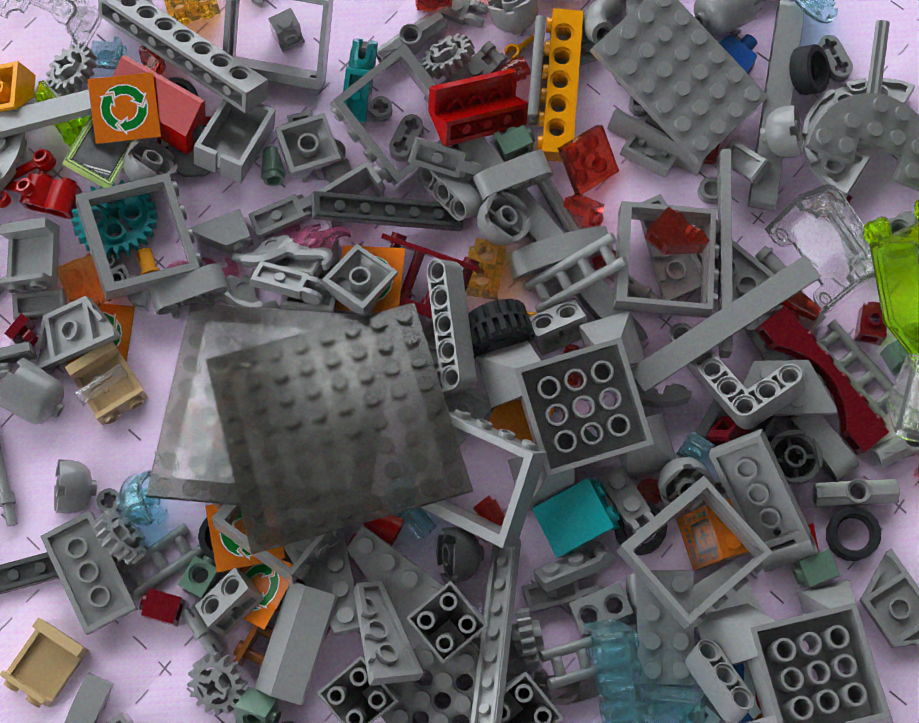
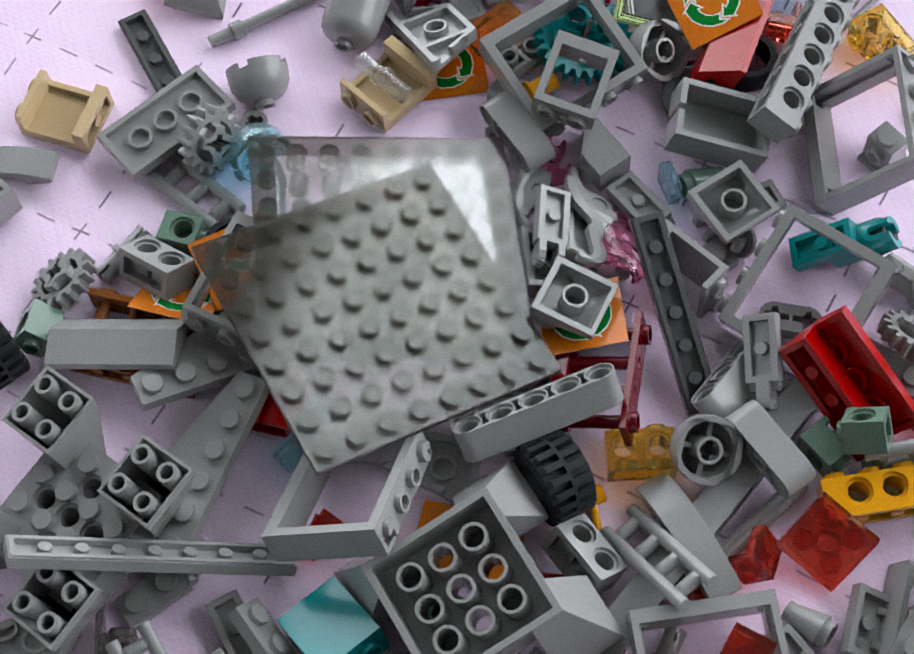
camera: 80 degrees right, 10 degrees down
(146, 213) = (586, 53): none -> light grey window
(162, 607) = (143, 205): dark red brick -> none
(267, 188) = (669, 182): none -> clear light blue tile
(380, 100) = (821, 273): light grey bush -> none
(384, 641) = (109, 429): light grey wing -> none
(459, 554) = (254, 506): dark grey cylinder -> none
(518, 107) = (866, 430): none -> sand green brick
(528, 638) = (167, 605): light grey gear -> none
(641, 189) = (811, 624): none -> light grey cone

